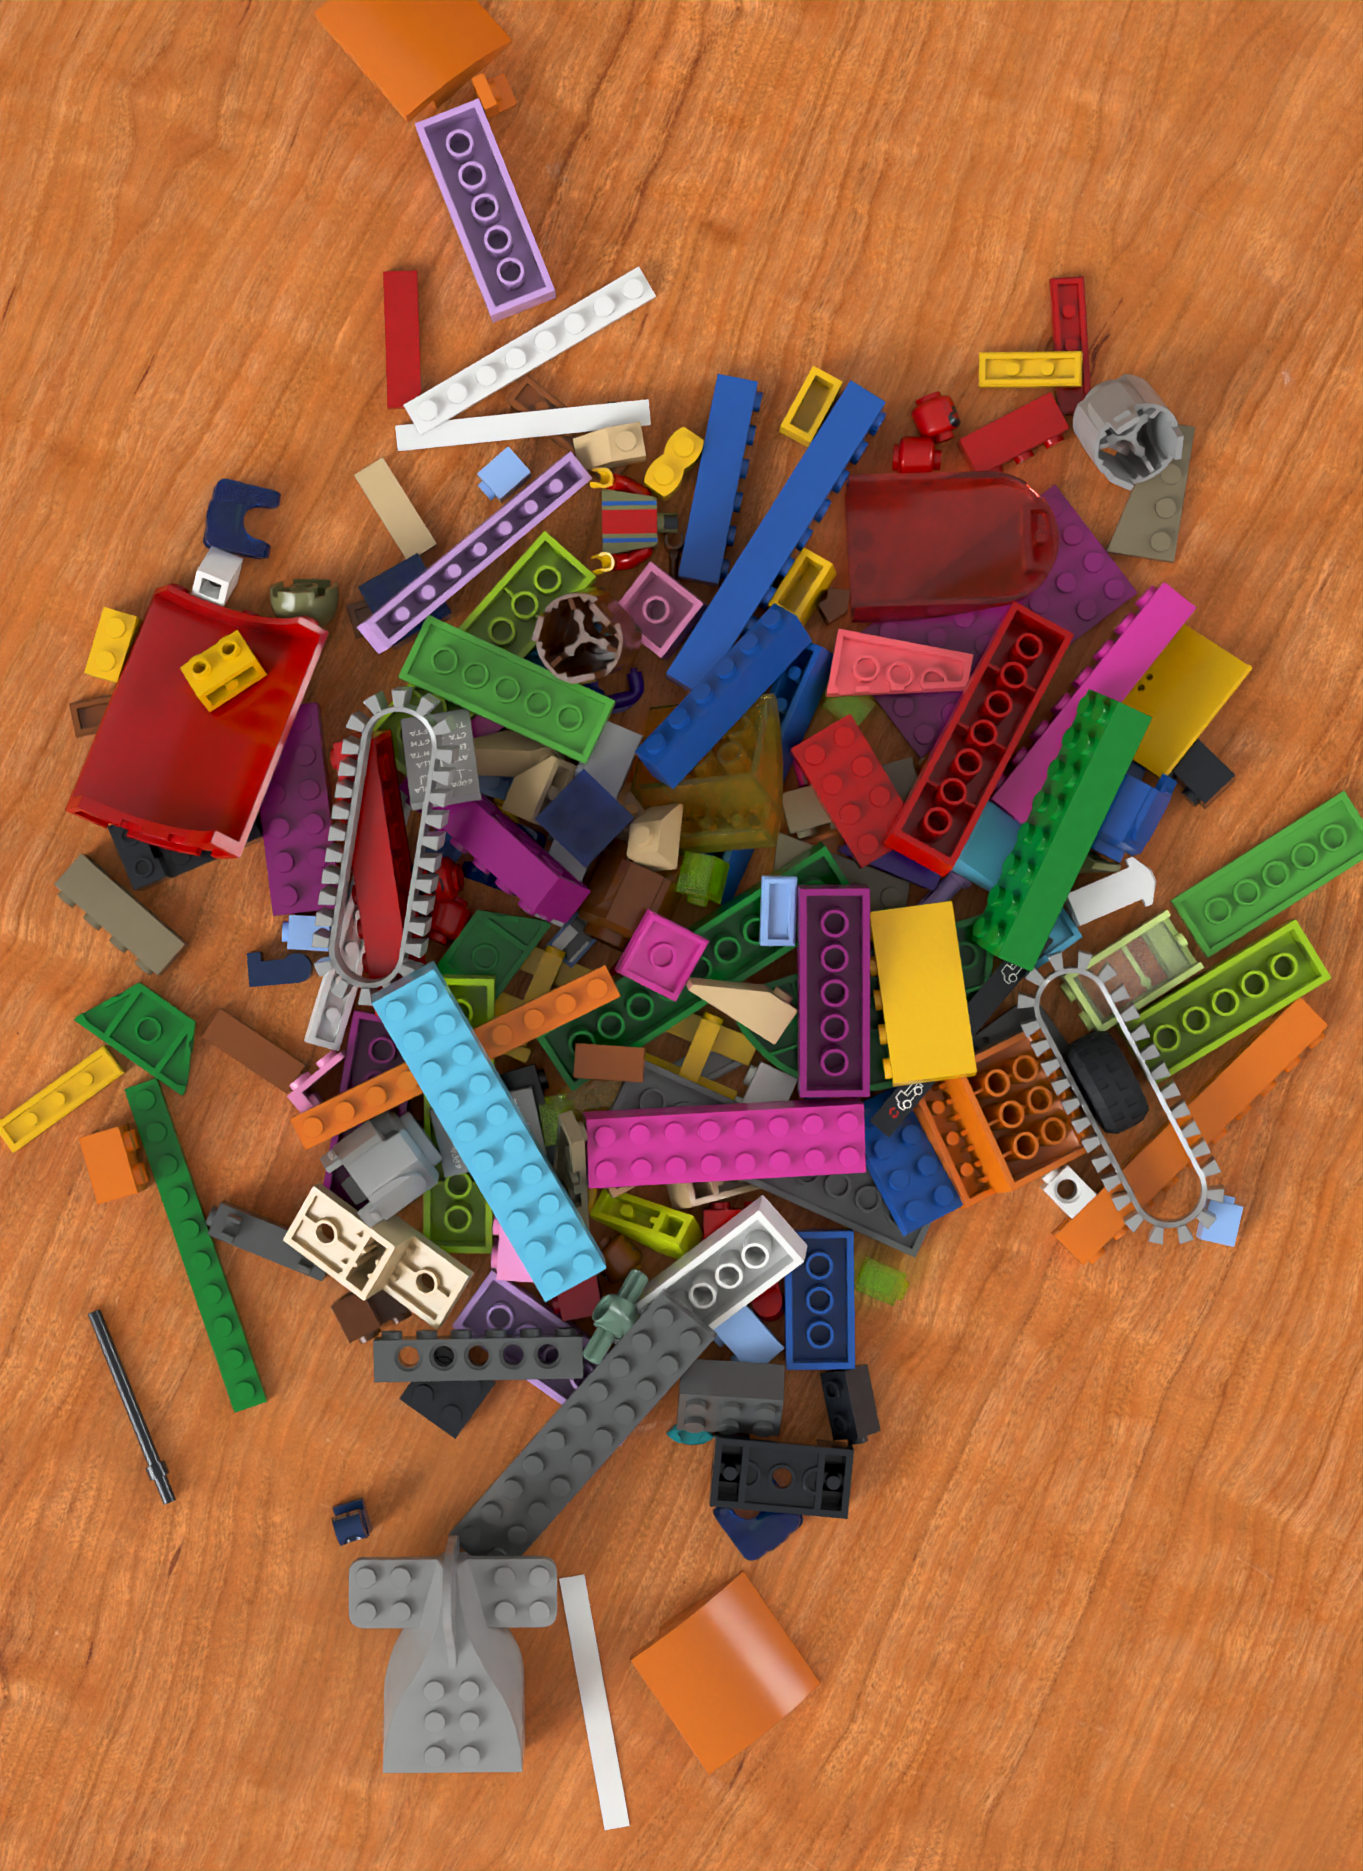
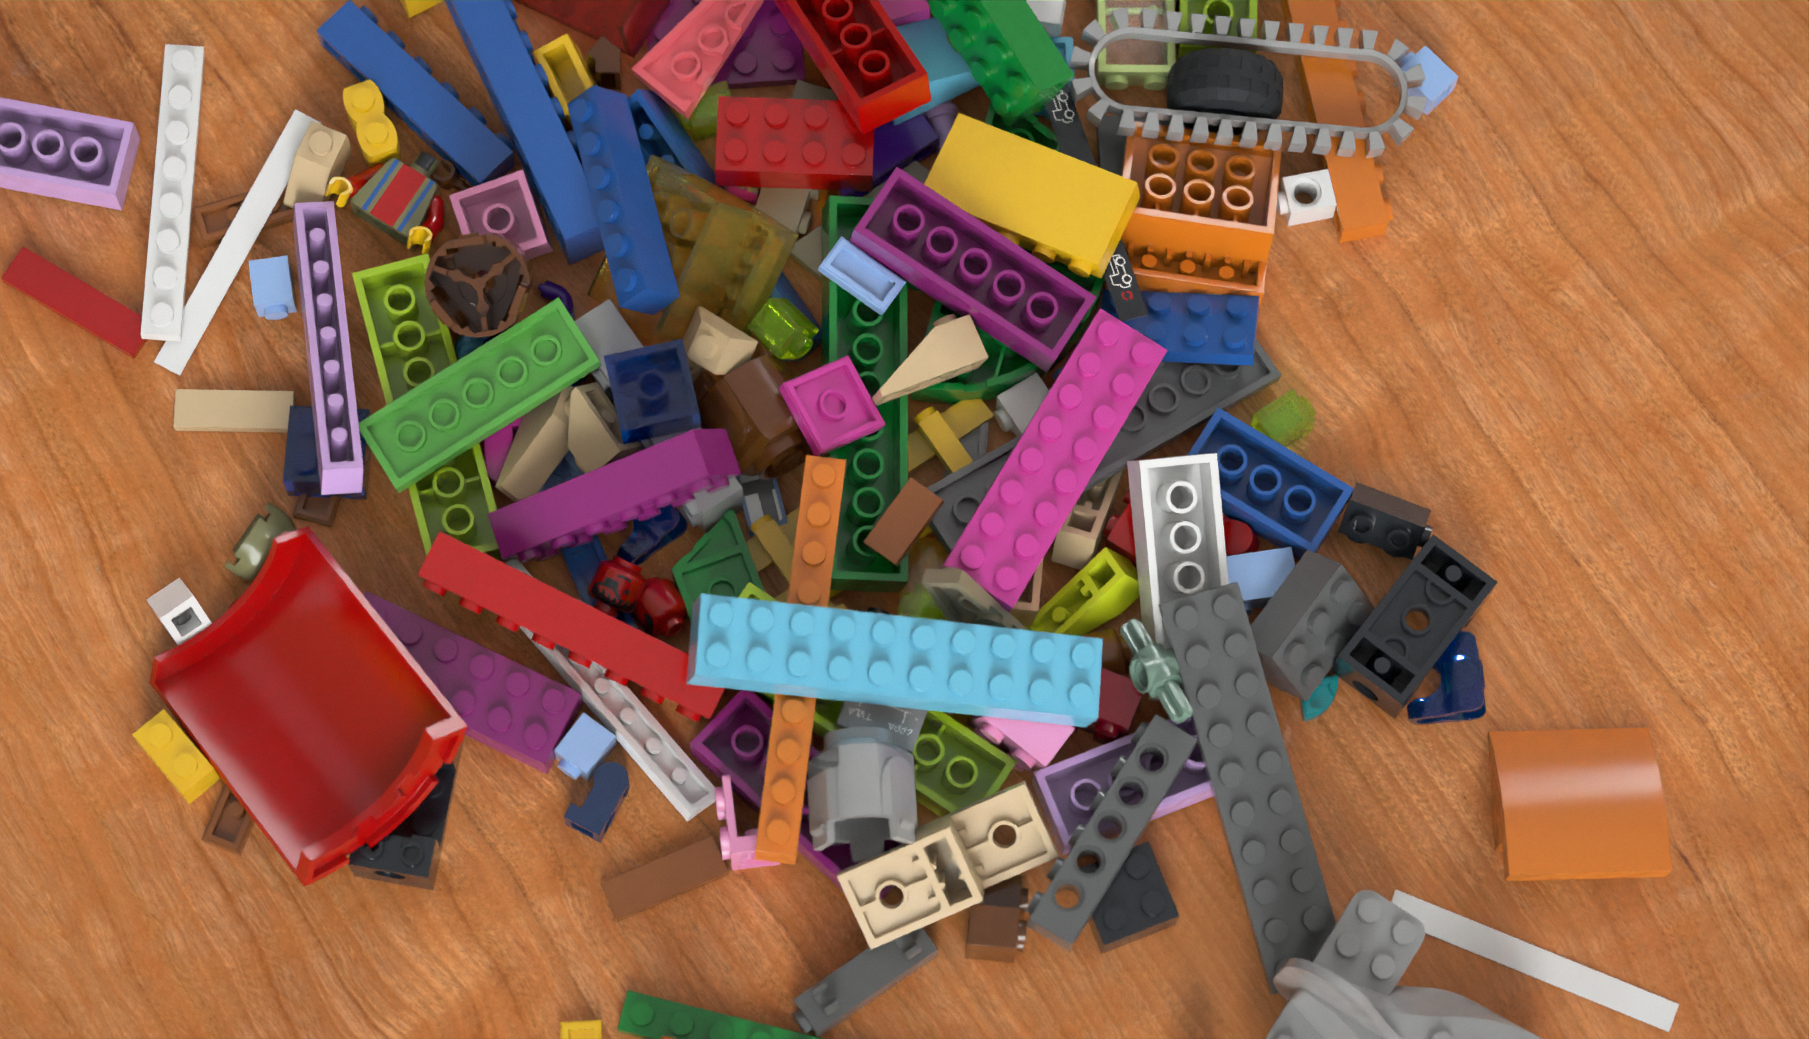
camera: 60 degrees left, 15 degrees down
(120, 914) = (443, 919): dark tan brick -> none
(147, 1033) = (576, 970): green wing -> none
(223, 671) = (274, 656): yellow brick -> none
(226, 518) = (128, 568): clear blue piece -> none
(341, 832) = (507, 623): light grey piece -> none
(418, 752) = (503, 494): light grey tile -> none

